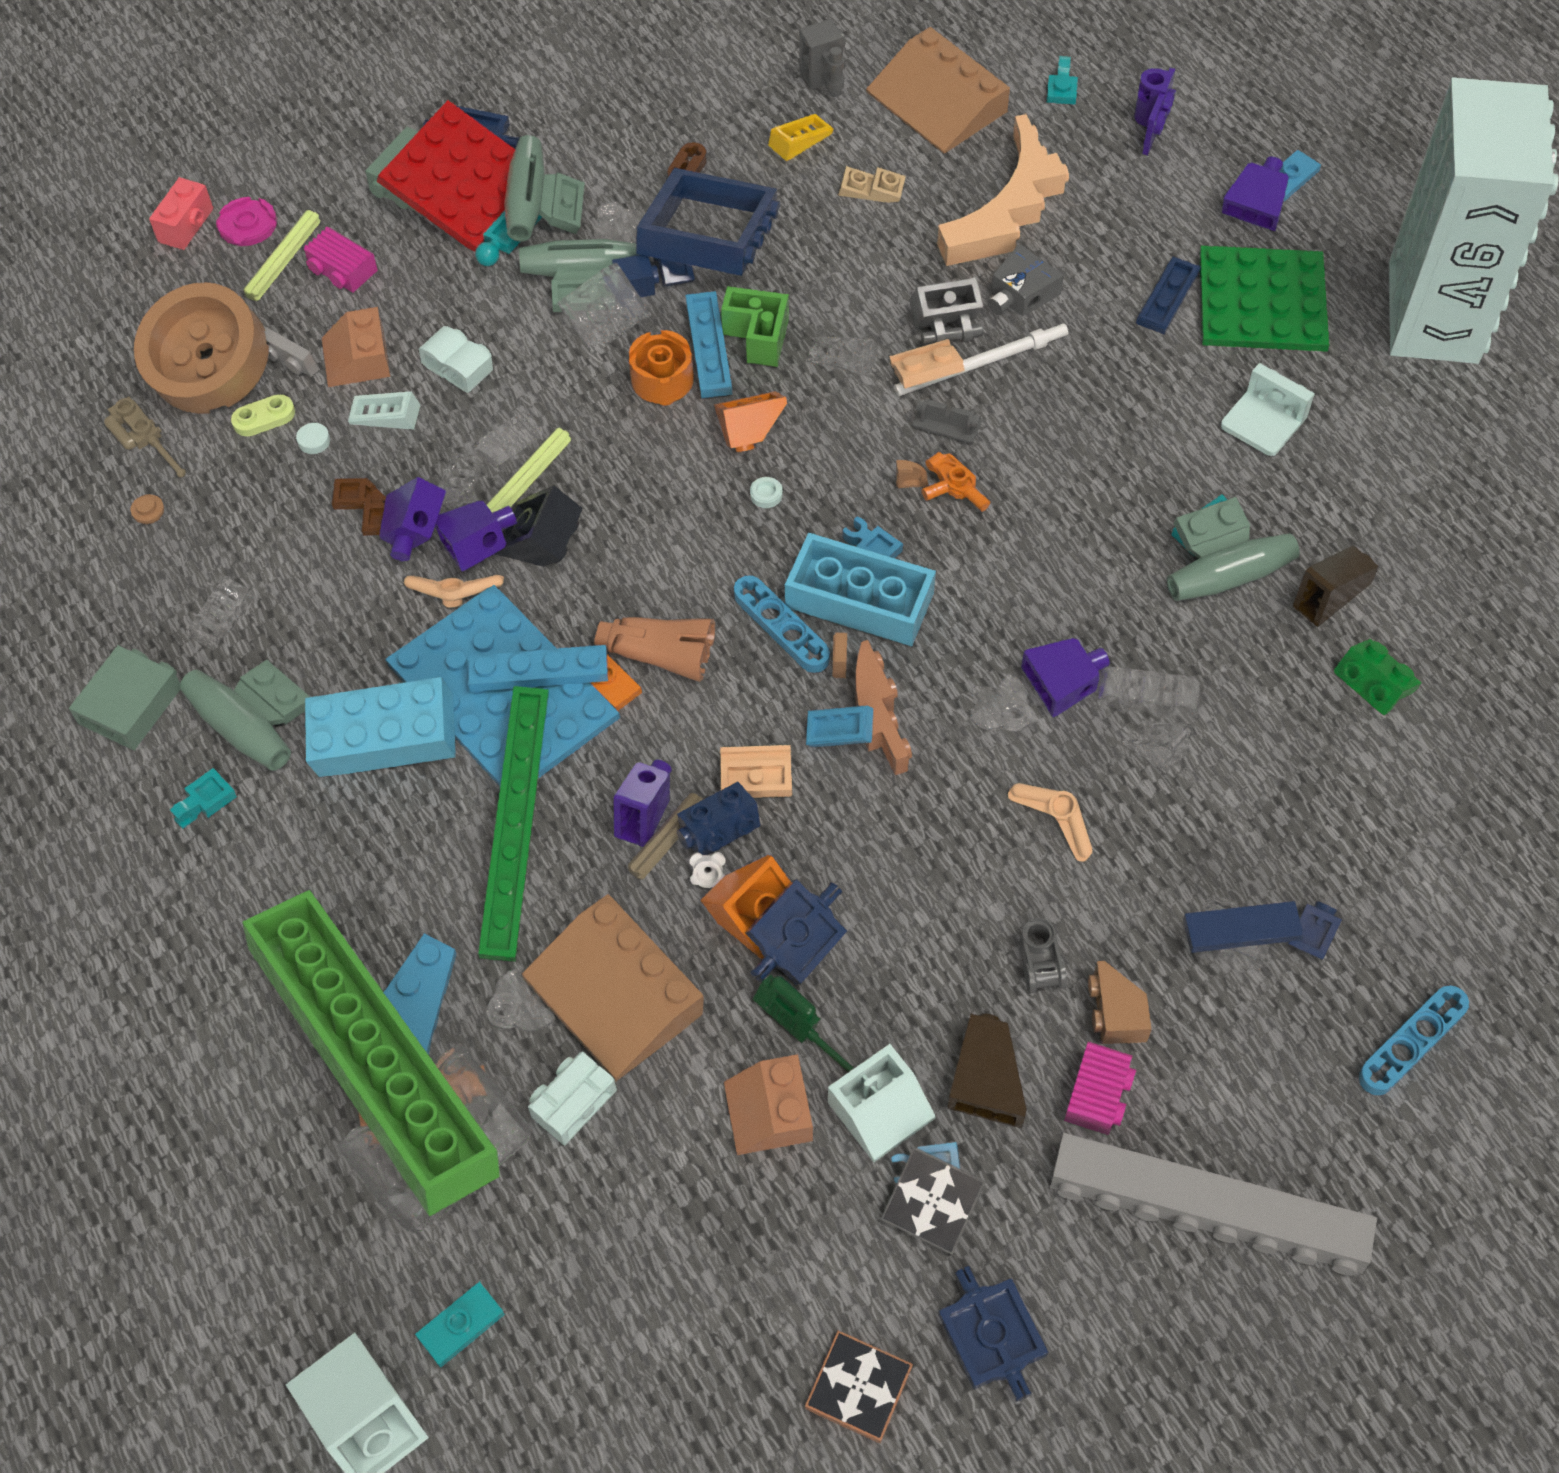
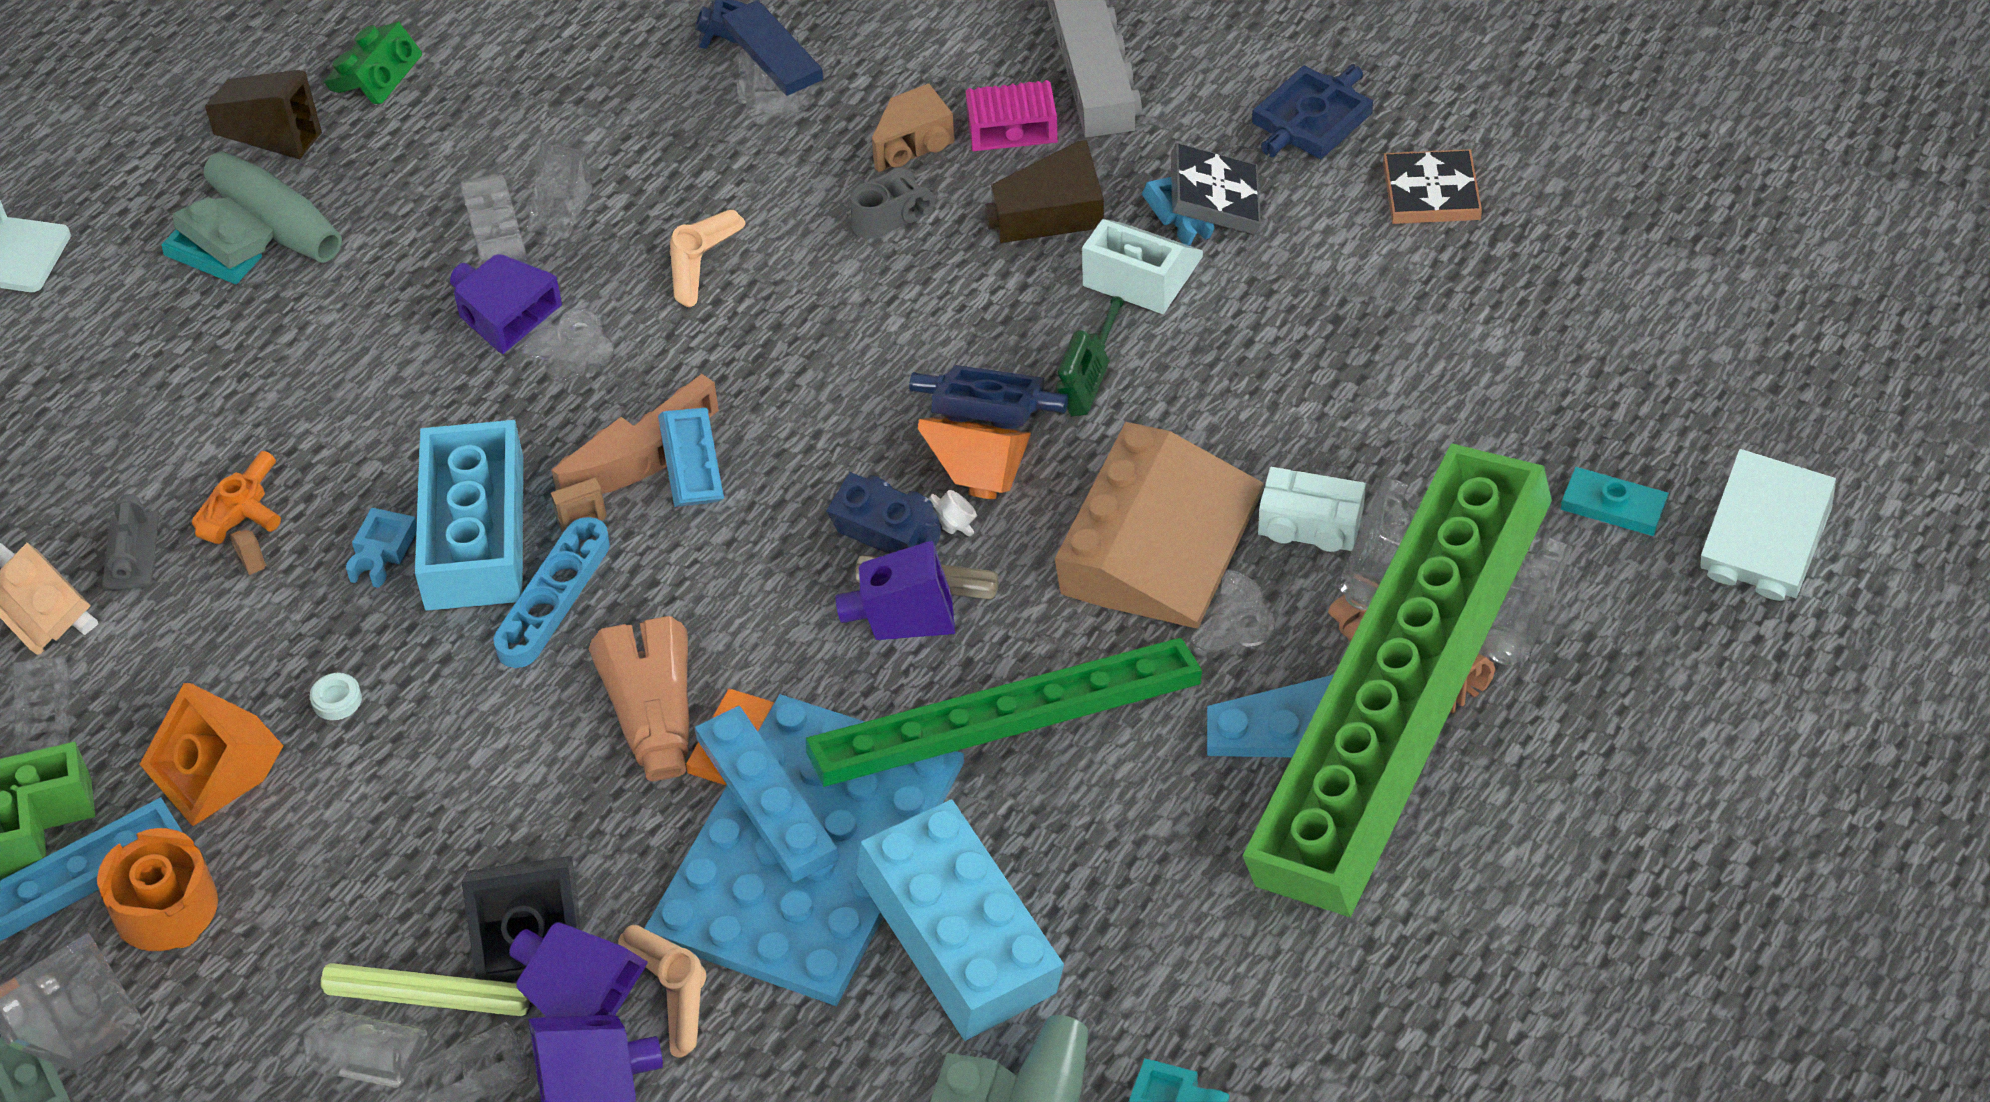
camera: 115 degrees left, 10 degrees down
(759, 769) = (791, 525): light nougat plate -> none
(769, 1106) = (1203, 343): nougat slope -> none

